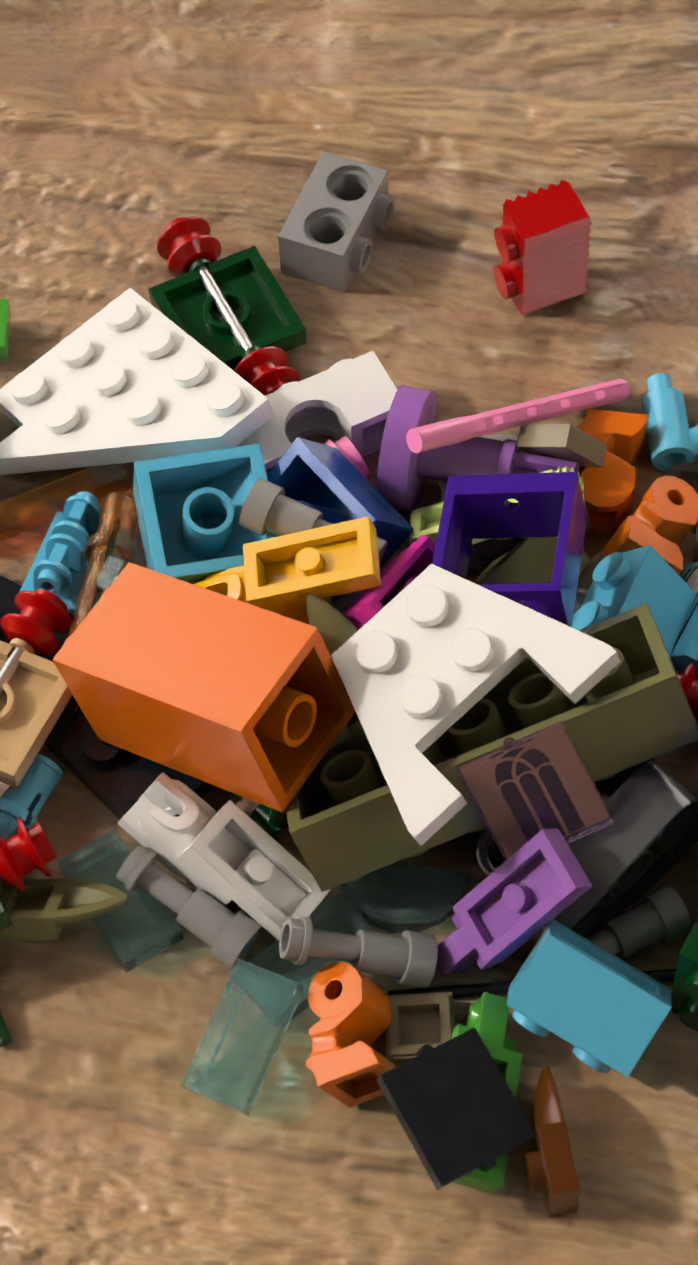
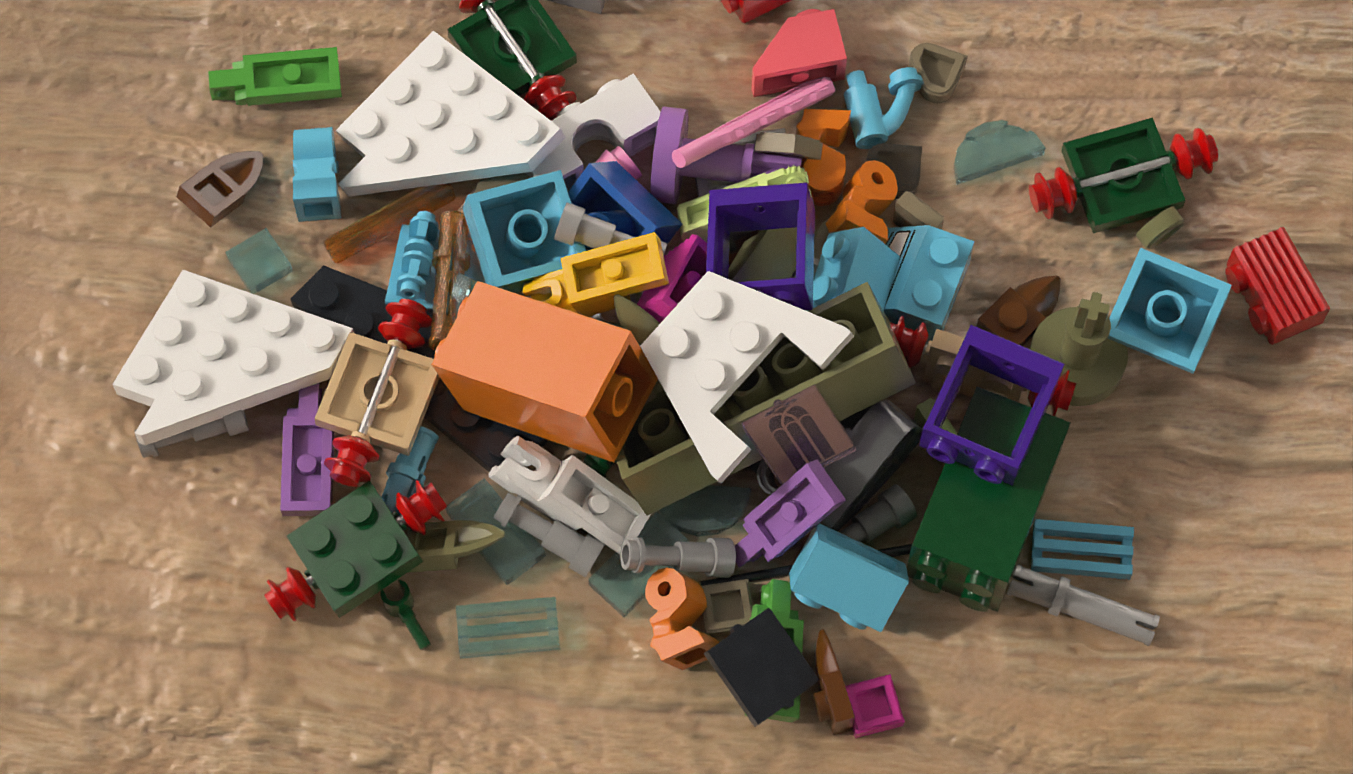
camera: 10 degrees left, 10 degrees up
(117, 1051) = (507, 646): none -> clear light blue tile
(243, 1036) = (601, 627): clear light blue tile -> none
(588, 347) = (800, 52): none -> coral slope
(610, 1182) = (874, 706): none -> dark pink tile

